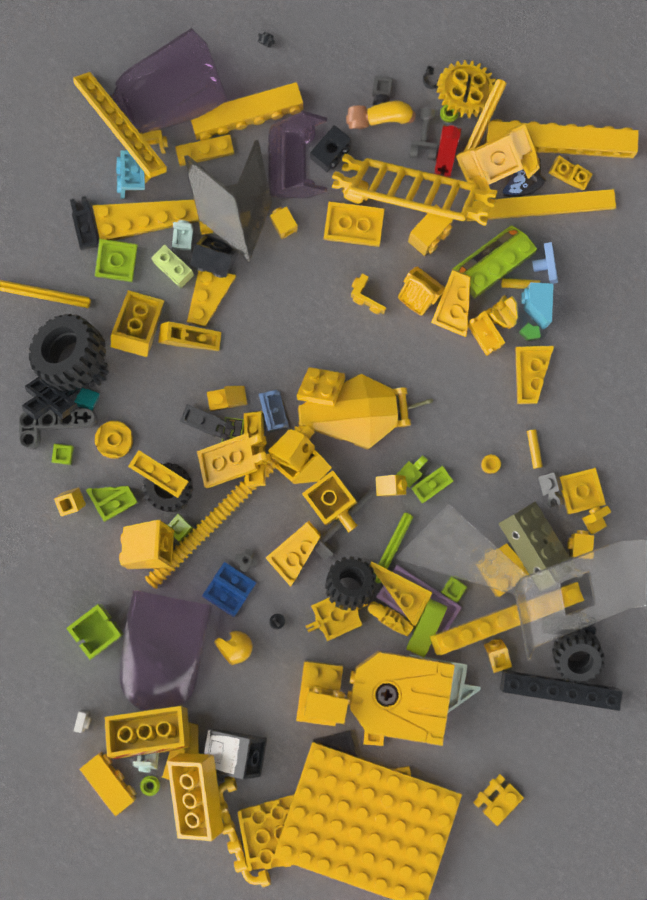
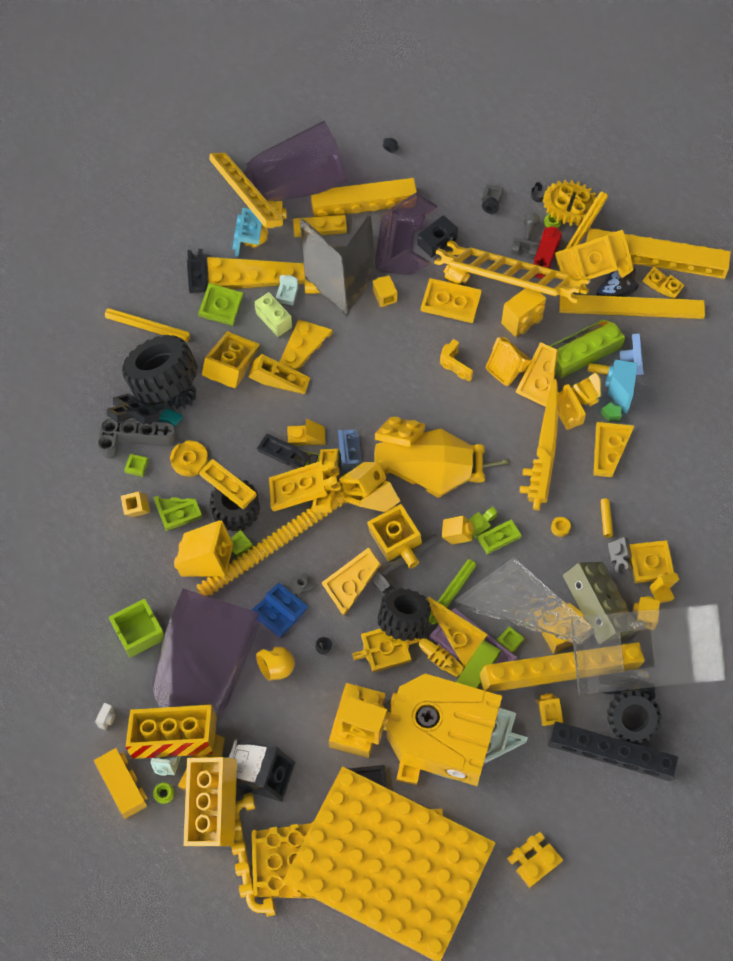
camera: 10 degrees right, 20 degrees down
(213, 256) = (314, 309): black slope -> none
(390, 111) = (497, 210): yellow piece -> none
(467, 407) = (542, 468): none -> yellow piece

